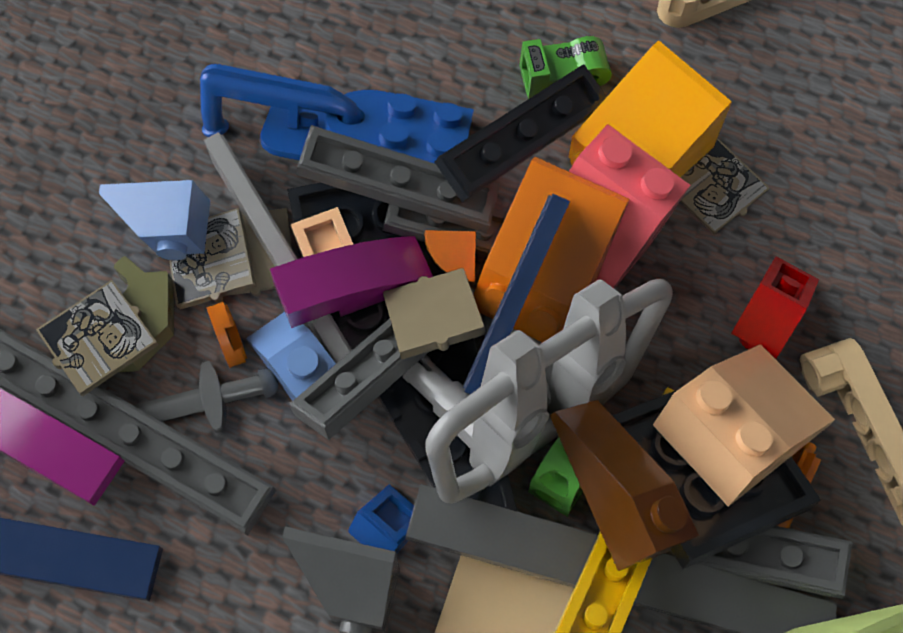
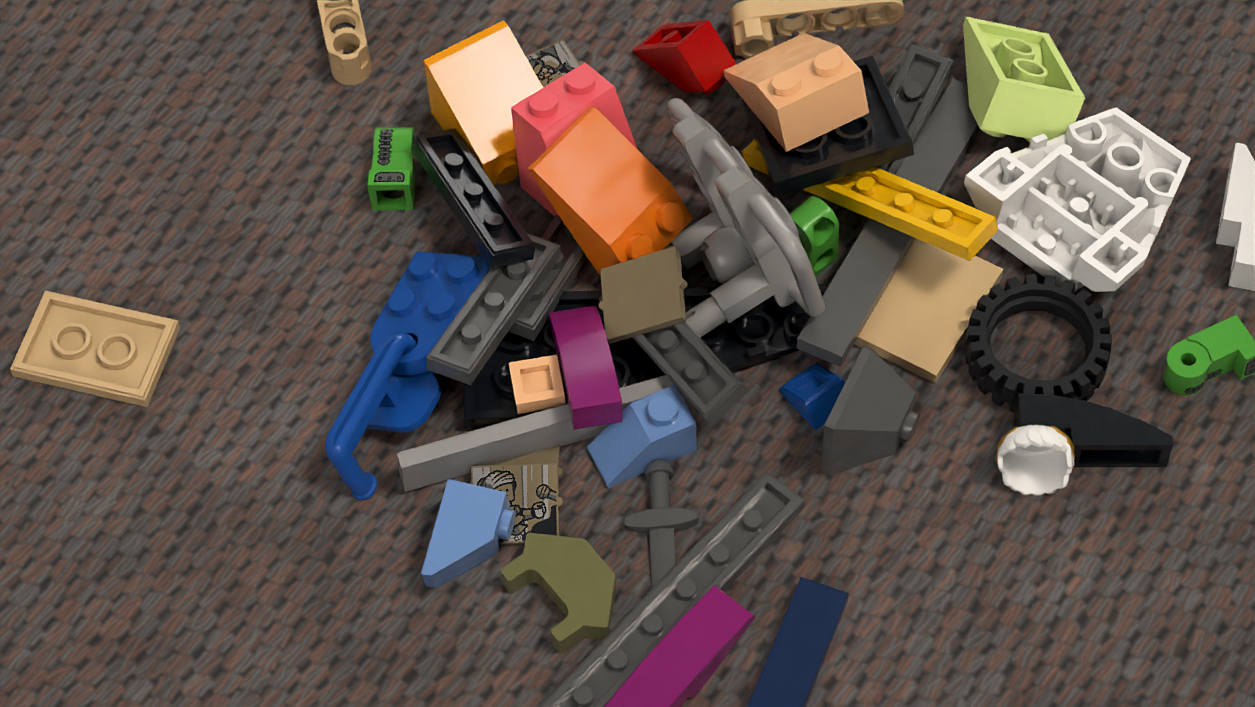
camera: 75 degrees left, 10 degrees down
(97, 338) = (584, 599): piece -> none
(227, 334) = (602, 497): orange tile -> none
(453, 250) = (575, 280): orange tile -> none
(519, 285) = (651, 213): dark blue tile -> none
(624, 486) = (849, 168): reddish brown slope -> none

